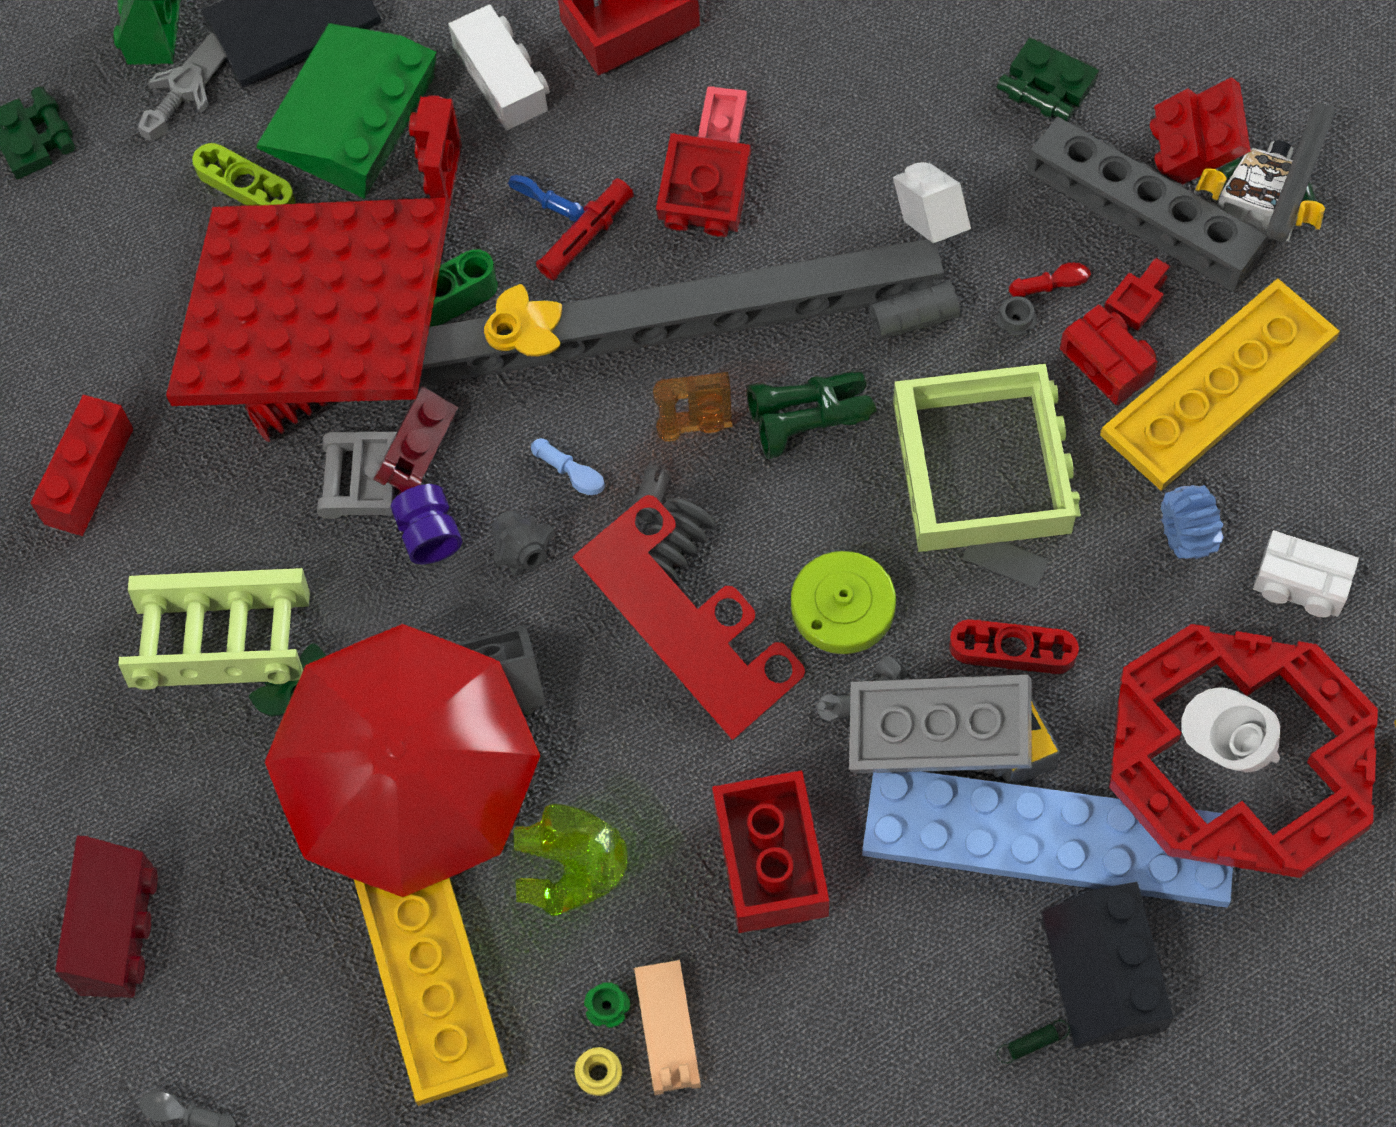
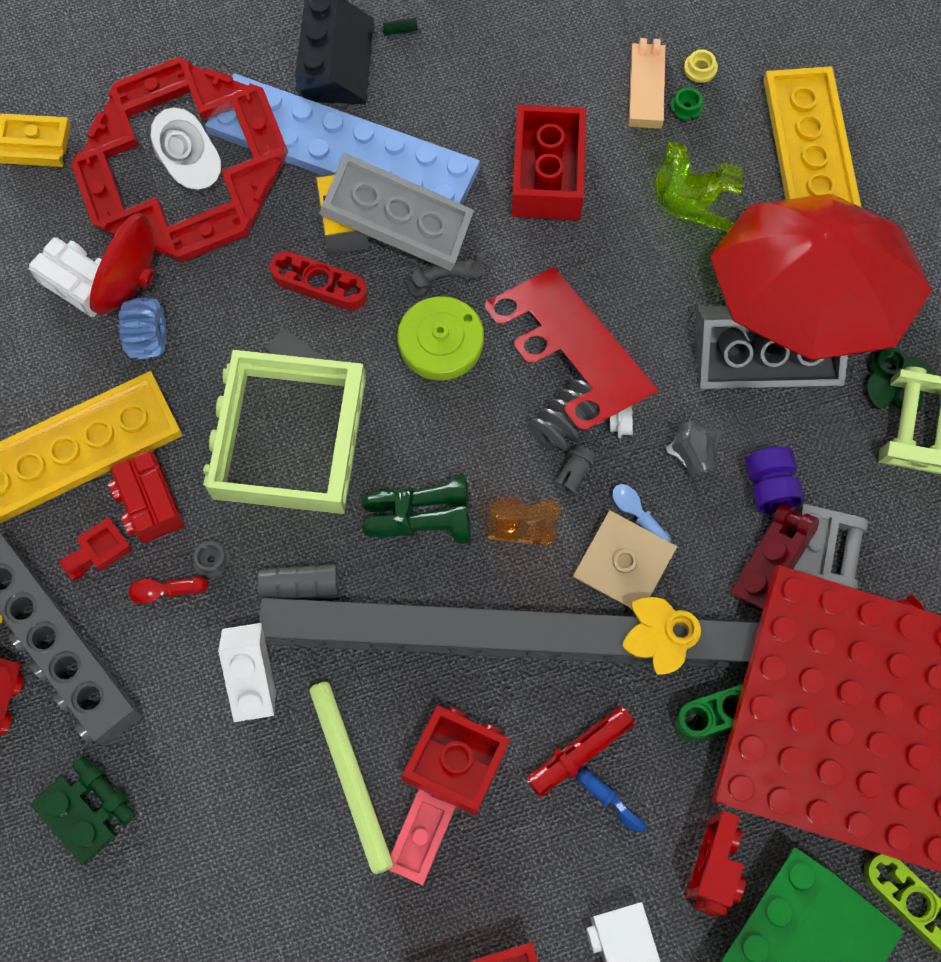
camera: 170 degrees left, 5 degrees up
(576, 410) = (624, 560): none -> tan plate
(804, 156) = (351, 778): none -> yellowish green axle
(1233, 567) = (124, 266): none -> red dish

